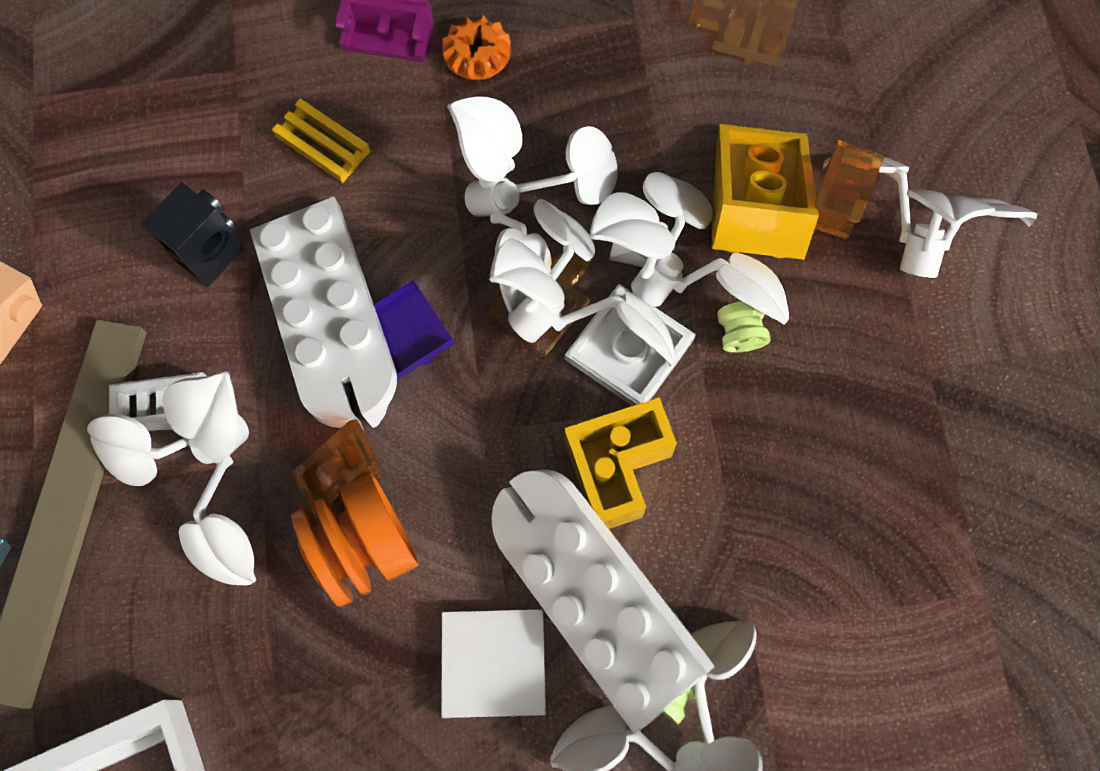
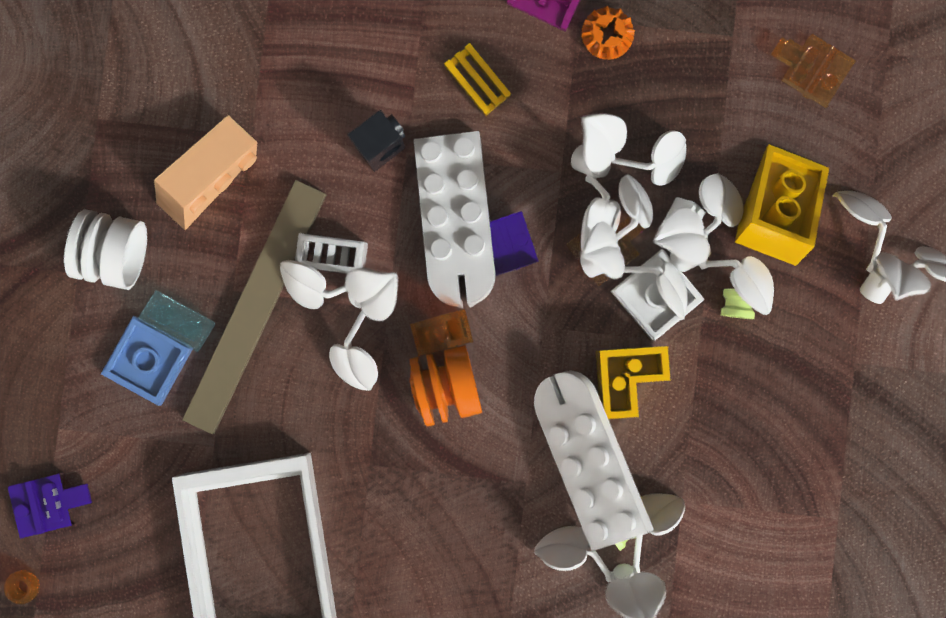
camera: 10 degrees right, 15 degrees up
(493, 663) = (513, 482): white tile -> none
(846, 188) = (841, 227): clear orange slope -> none

